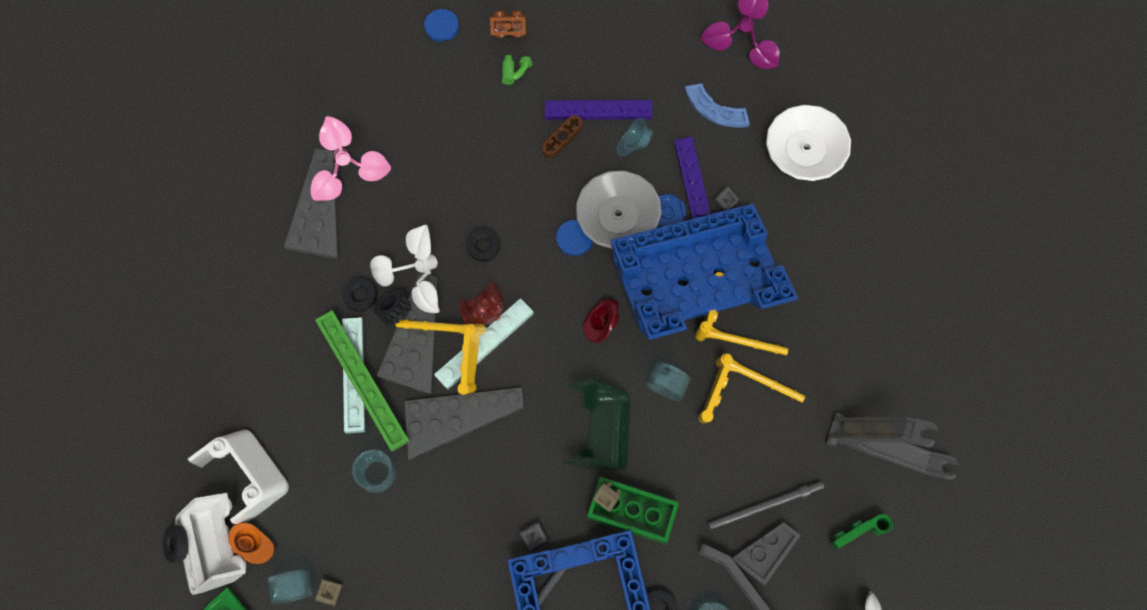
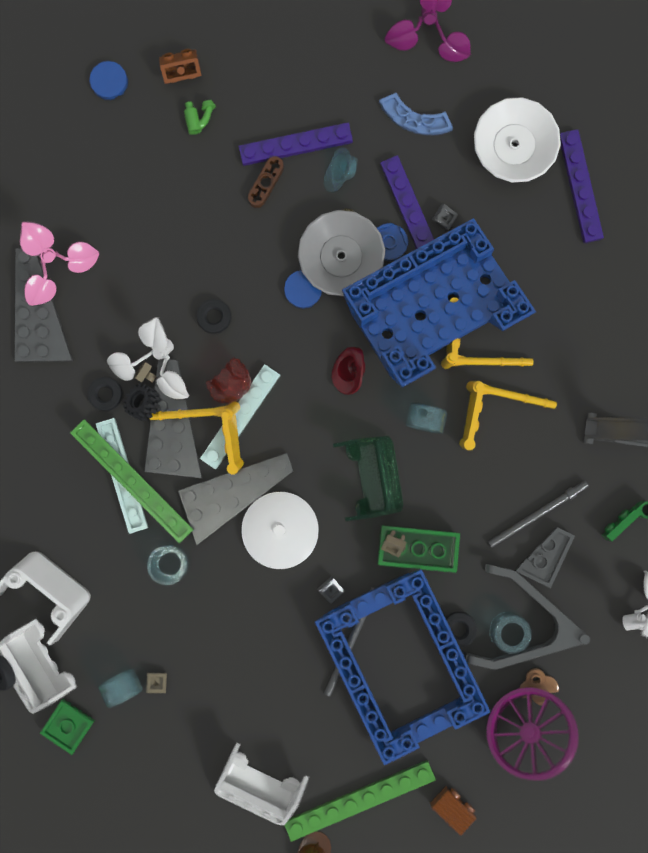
camera: 15 degrees left, 15 degrees up
(250, 543) = (71, 657): orange piece -> none
(402, 282) = (143, 372): none -> dark tan tile
(496, 463) = (280, 530): none -> white dish
(864, 199) = (581, 186): none -> dark purple plate

